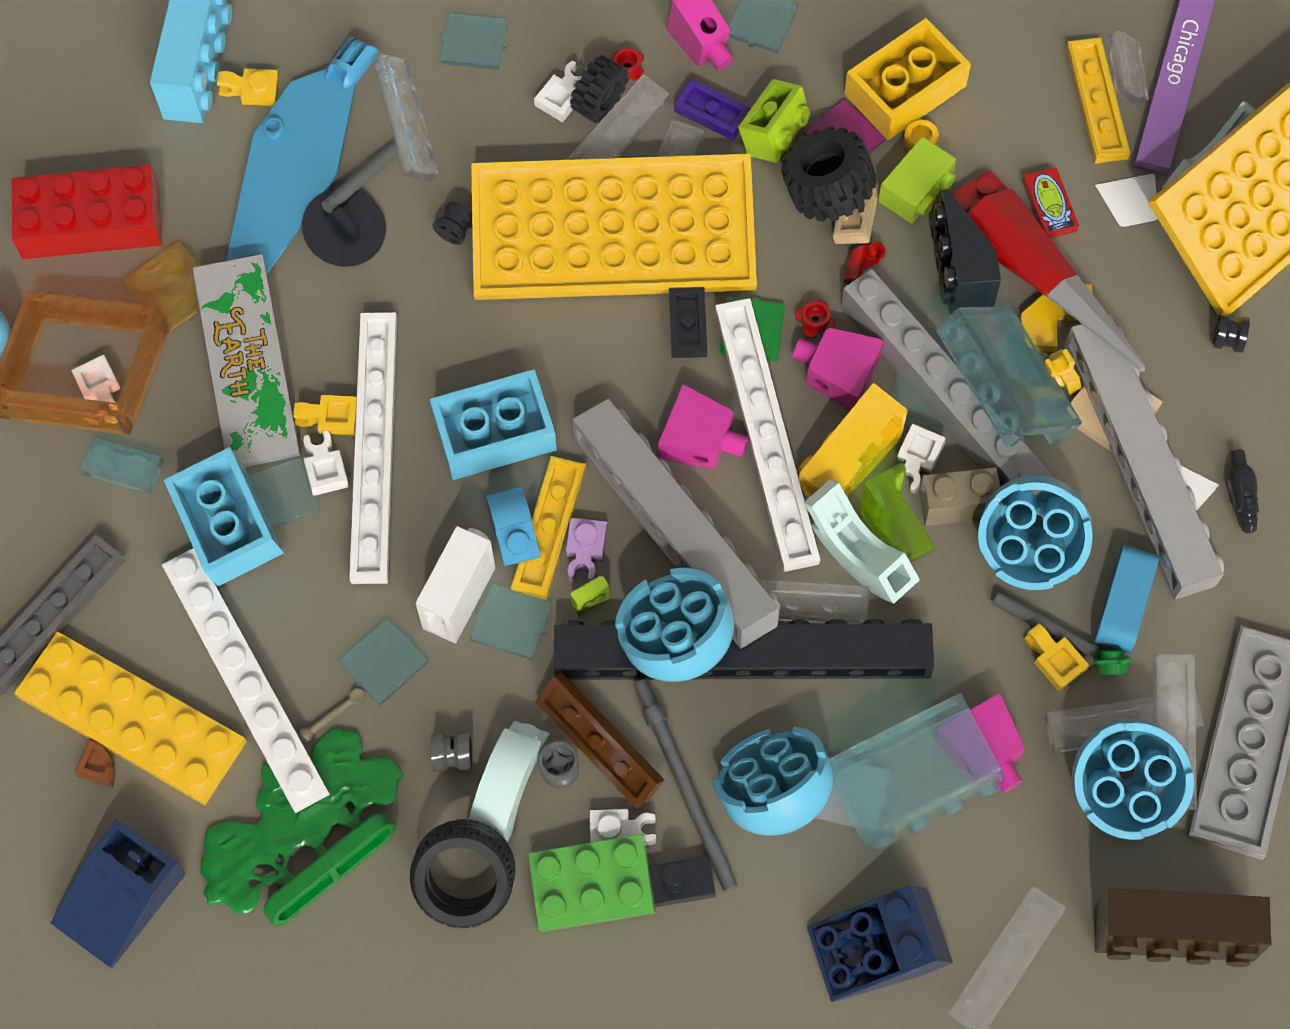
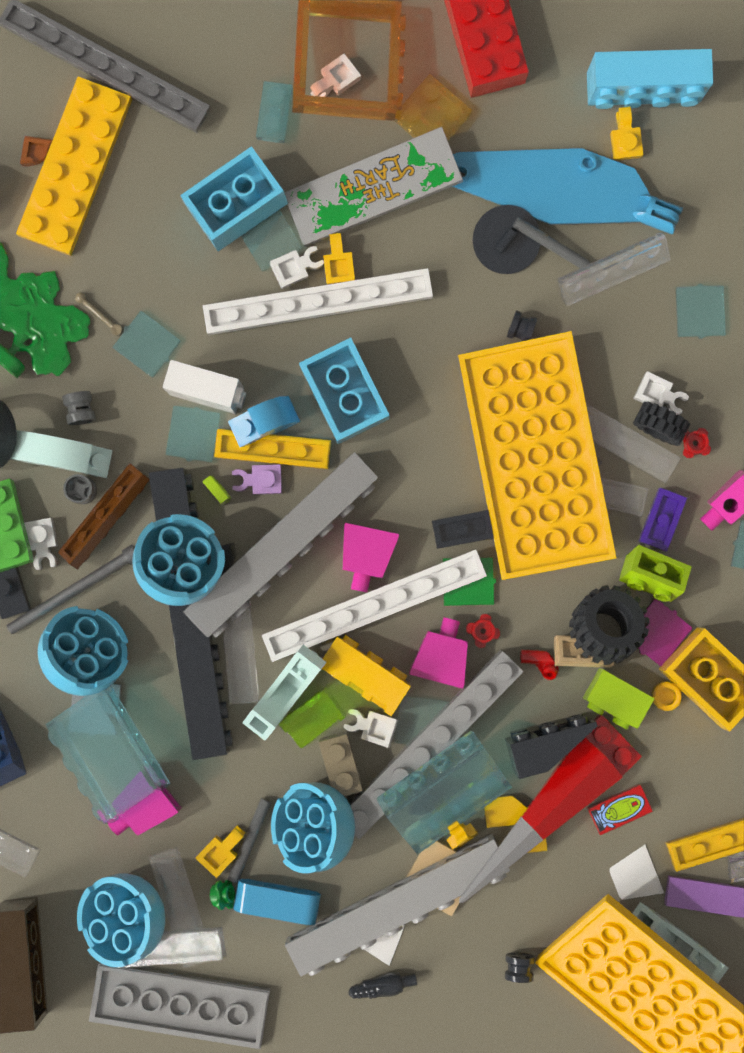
camera: 80 degrees right, 20 degrees up
(246, 682) = (109, 246): white plate -> none

